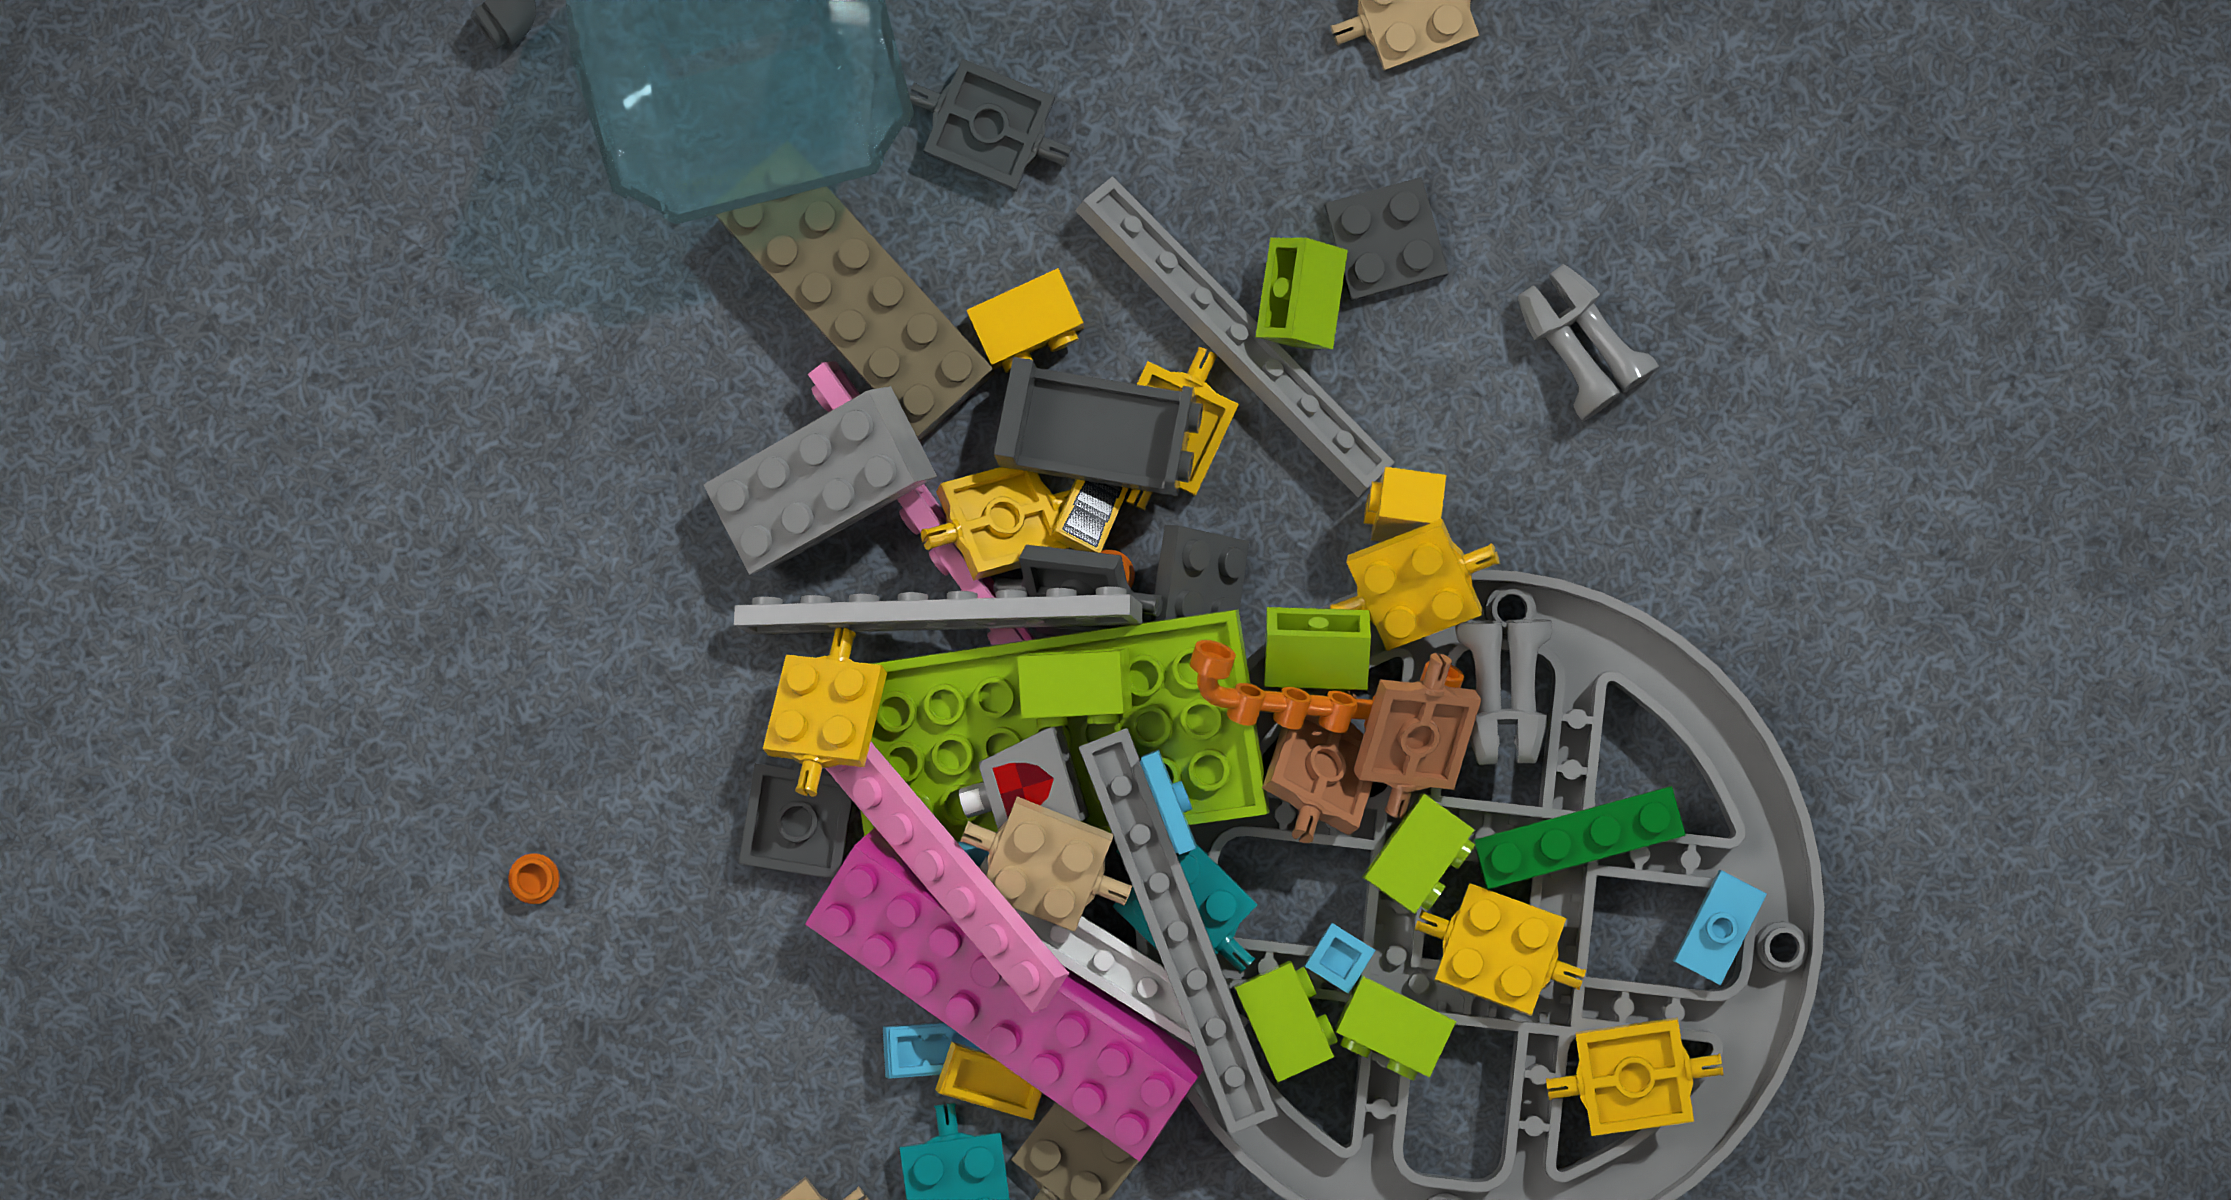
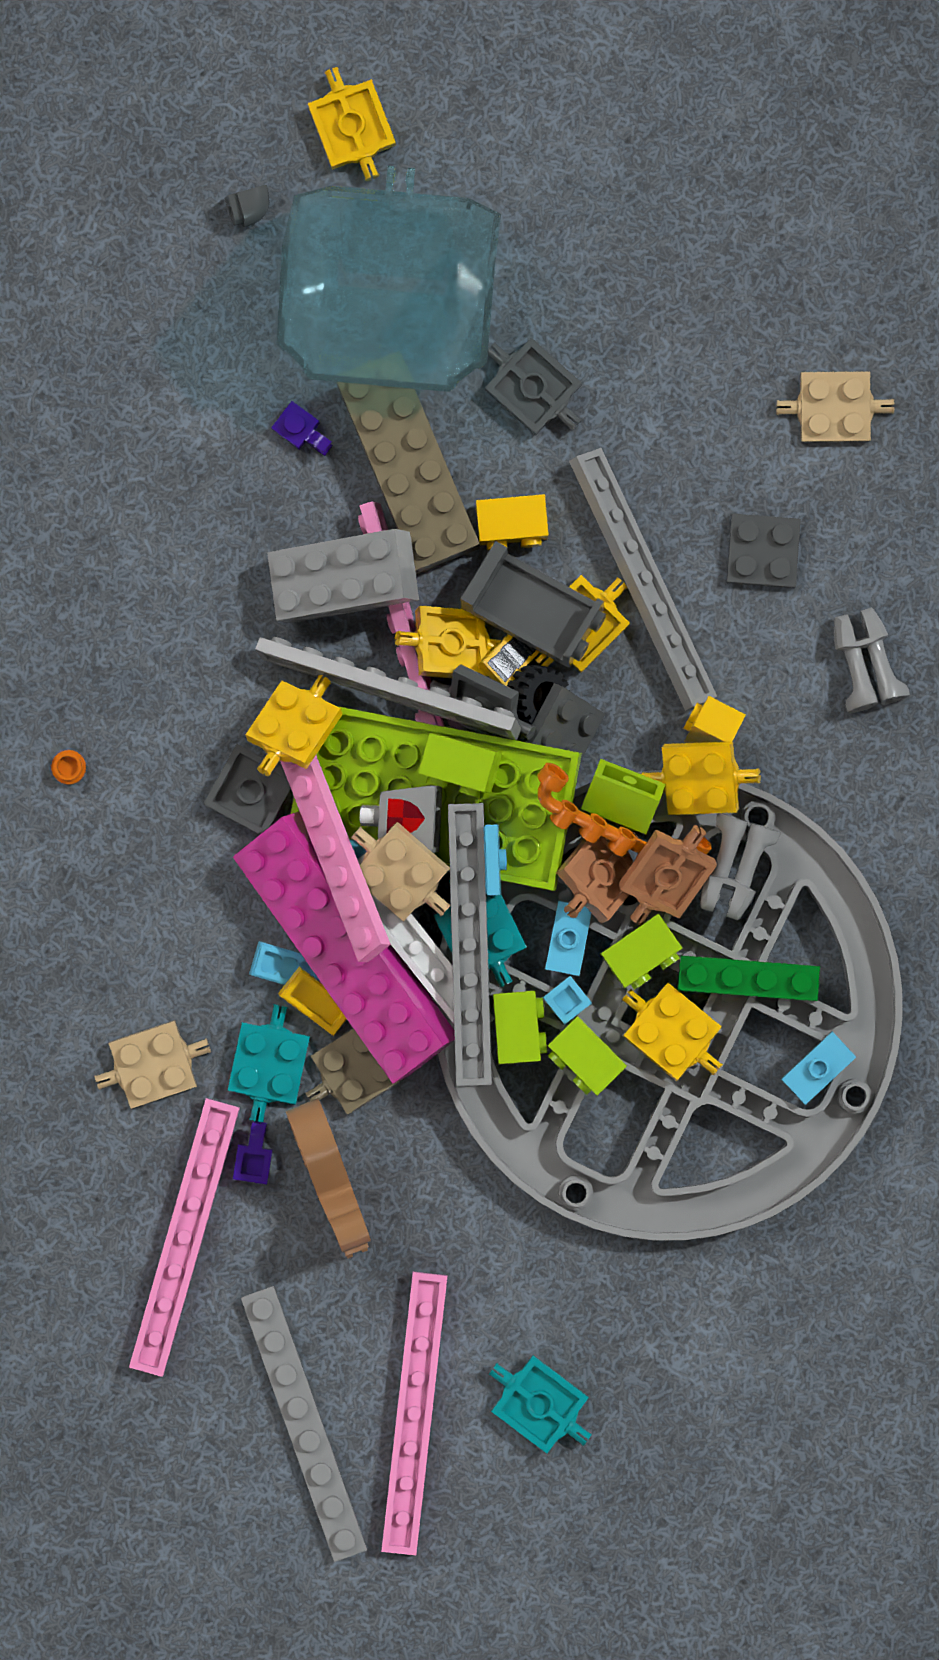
camera: 20 degrees right, 0 degrees up
(686, 295) = (299, 427): none -> dark purple plate
(1126, 539) = (526, 684): none -> black tyre
(1301, 293) = (695, 566): lime brick -> none
(1311, 875) = (568, 941): none -> medium azure plate
(1634, 1076) = (729, 1143): yellow plate -> none

